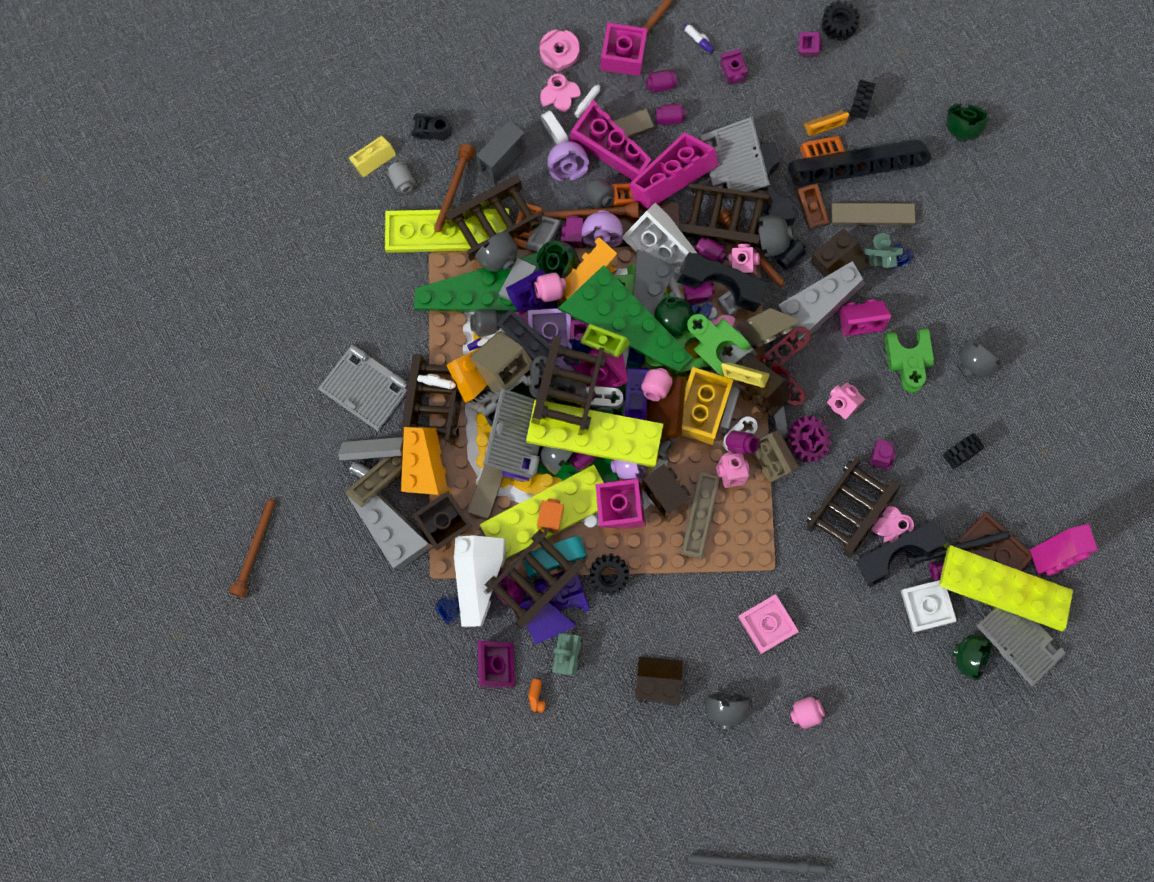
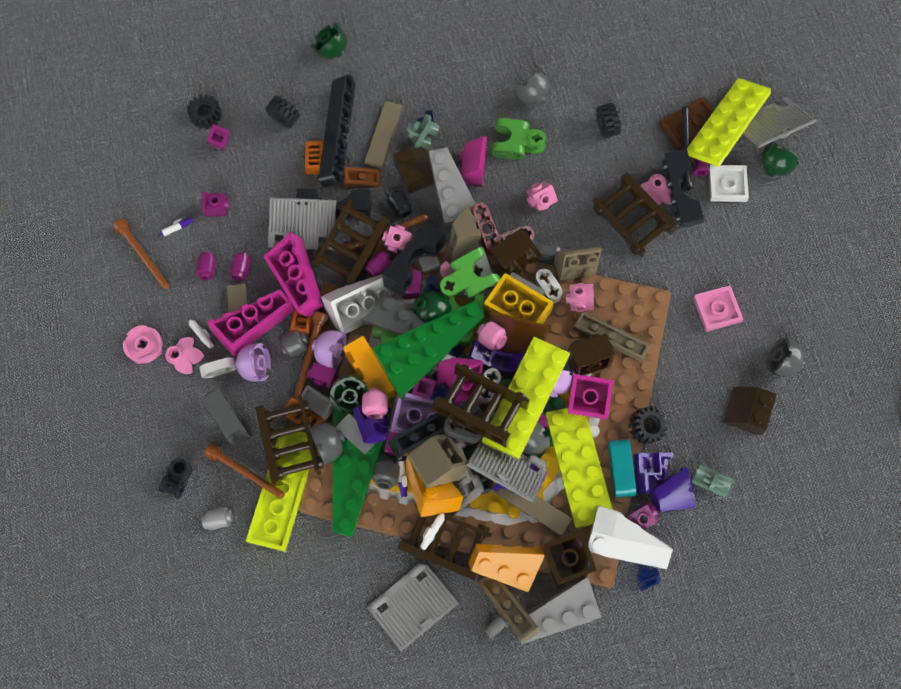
camera: 75 degrees left, 5 degrees down
(371, 449) = (477, 611): light grey tile -> none
(372, 156) = (184, 541): light yellow slope -> none
(496, 664) = (707, 548): magenta slope -> none
(533, 696) = (749, 520): orange arm -> none
(538, 598) = (651, 471): dark brown fence -> none
(550, 515) = (587, 459): orange brick -> none
(611, 342) = (444, 365): lime slope -> none
(623, 49) = (165, 287): dark pink slope -> none
(742, 442) = (561, 281): magenta brick -> none
(745, 374) = (507, 257): light yellow slope -> none
(775, 235) = (383, 206): dark grey cylinder -> none
(807, 712) = (800, 297): bright pink head -> none
(808, 439) = (567, 232): magenta gear -> none
(826, 123) = (290, 147): light orange slope -> none
(883, 454) = (596, 178): magenta brick -> none
(1064, 550) = (714, 65): dark pink wedge -> none

